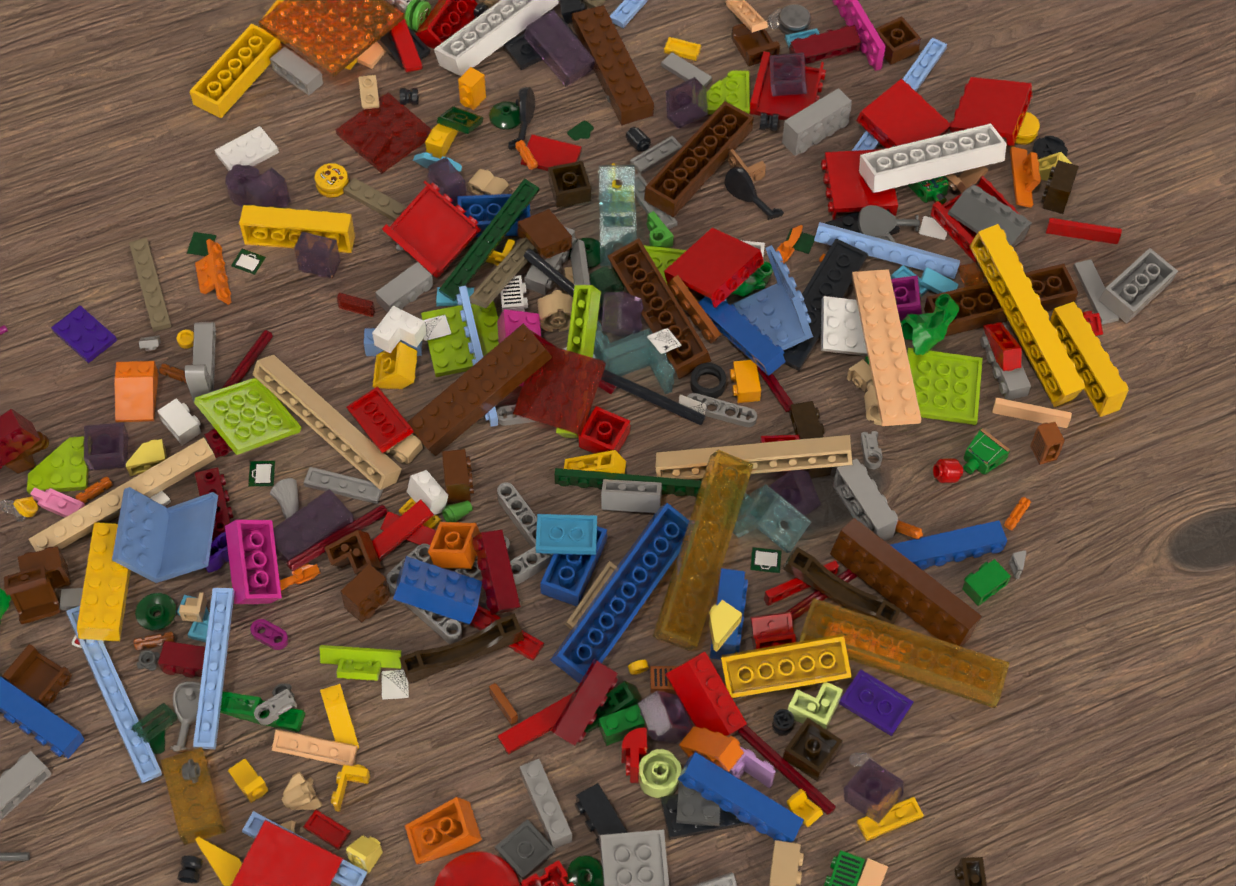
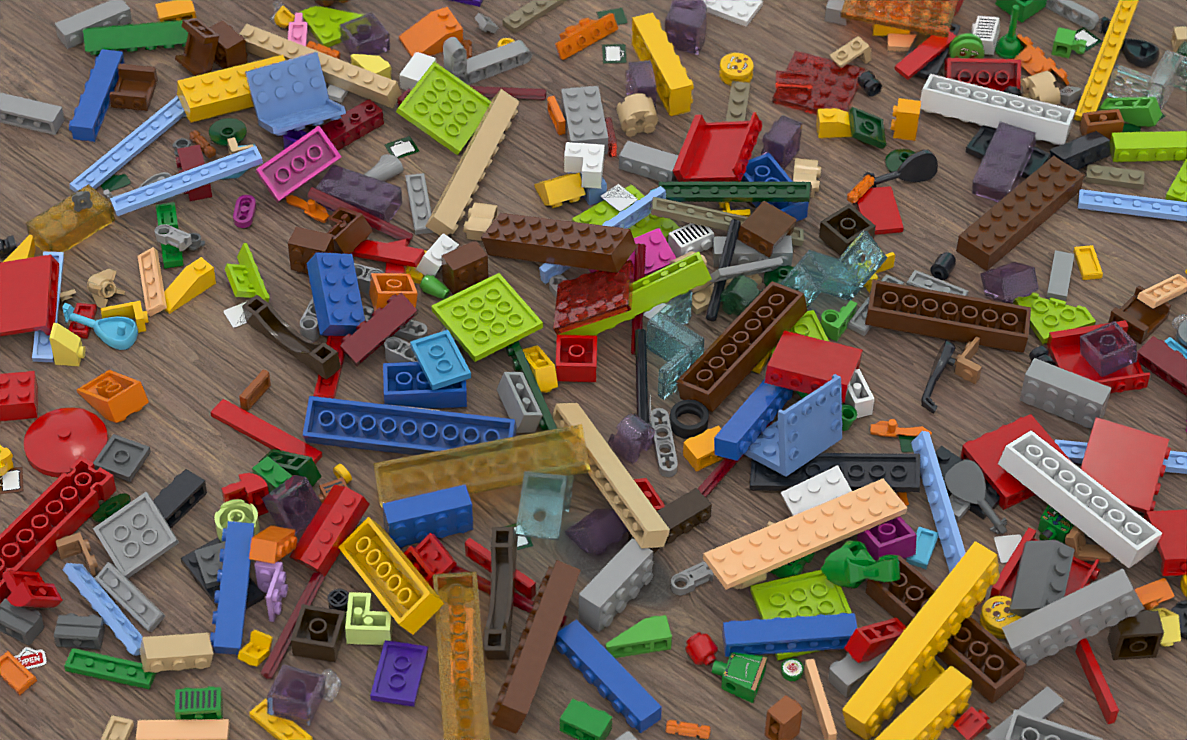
camera: 65 degrees right, 10 degrees down
(143, 733) = (124, 174): clear green tile -> none
(248, 781) = (99, 255): yellow bracket -> none
(303, 334) = (556, 115): none -> orange tile
(325, 315) = (584, 116): none -> light grey brick
(347, 272) = (637, 114): none -> tan brick
(360, 803) = (114, 331): none -> medium azure piece
(380, 419) = (495, 196): red tile -> none
(426, 159) = (805, 130): medium azure tile -> none
(529, 480) = (487, 317): none -> lime plate
(545, 804) = (170, 454): light grey brick -> none
(581, 131) = (926, 223): dark green sticker -> none
(584, 702) = (278, 439): dark red brick -> none
(621, 314) = (707, 313): brick -> none
(664, 340) = (698, 355): white sticker -> none
(691, 305) = (755, 379): dark orange plate -> none
(714, 427) = (632, 437): none -> clear purple brick
(722, 623) = (398, 500): light yellow slope -> none
(908, 530) = (607, 633): orange axle -> none
(917, 503) = (644, 637): none -> bright green slope
(937, 282) = (933, 565): medium azure tile -> none
(968, 403) = (788, 634): none -> blue brick
(989, 419) = (792, 669): none -> tile
(1046, 212) = (1073, 618): none -> light grey brick

